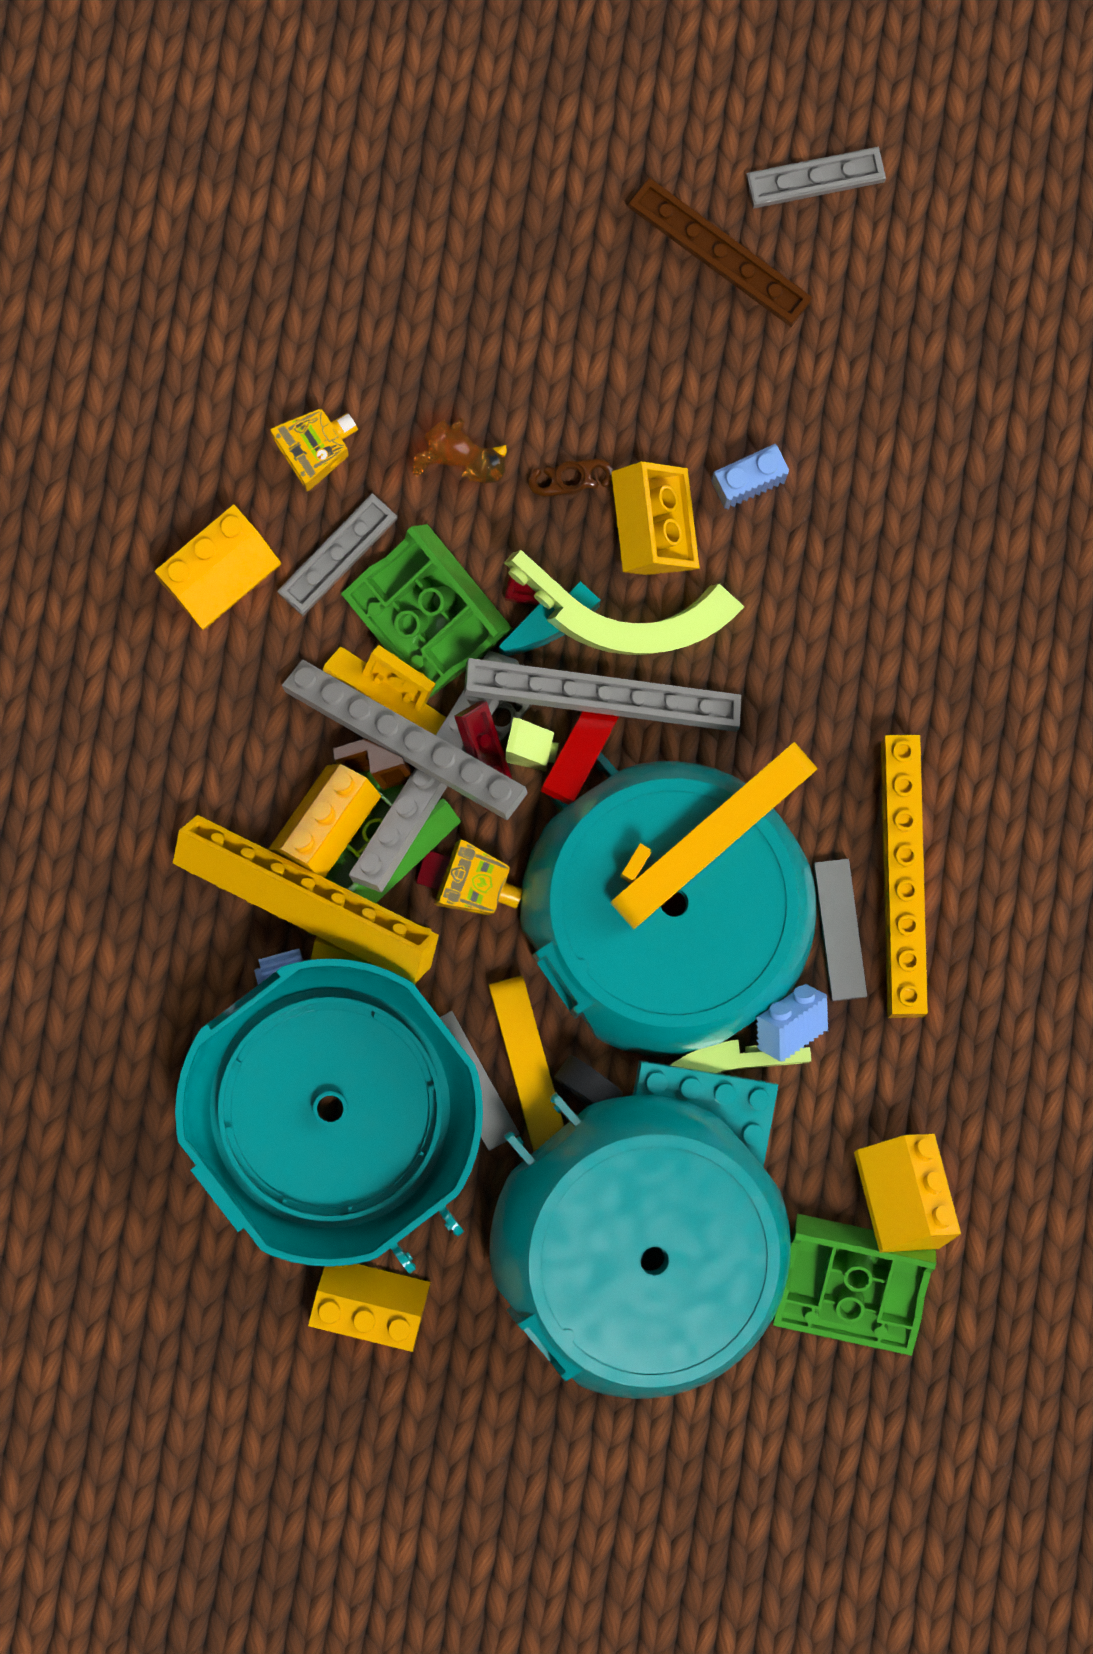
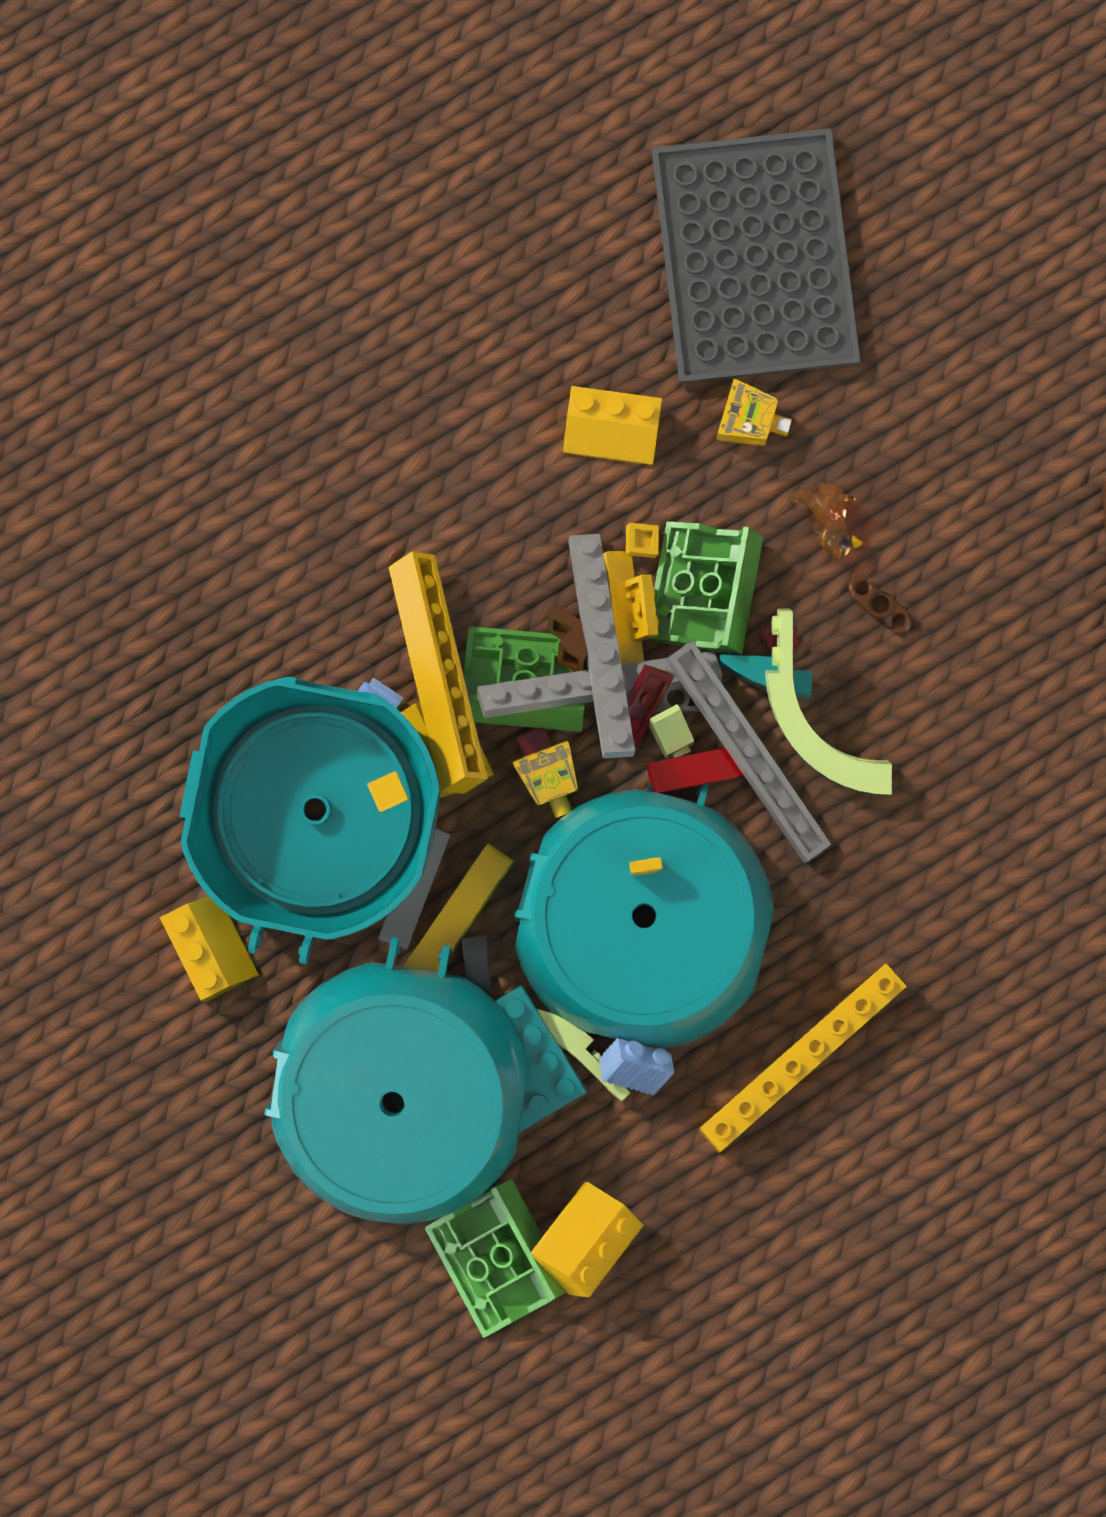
camera: 55 degrees right, 0 degrees up
(178, 322) = (755, 256): none -> dark grey plate
(326, 819) = (503, 642): yellow slope -> none
(337, 554) = (691, 496): light grey tile -> none
(340, 628) = (642, 540): none -> yellow plate
(377, 1029) = (388, 791): none -> yellow tile
(655, 519) = (900, 684): yellow slope -> none
(713, 835) = (710, 902): yellow beam -> none
(750, 476) = (986, 723): light blue brick -> none
(840, 930) = (729, 1047): light grey tile -> none

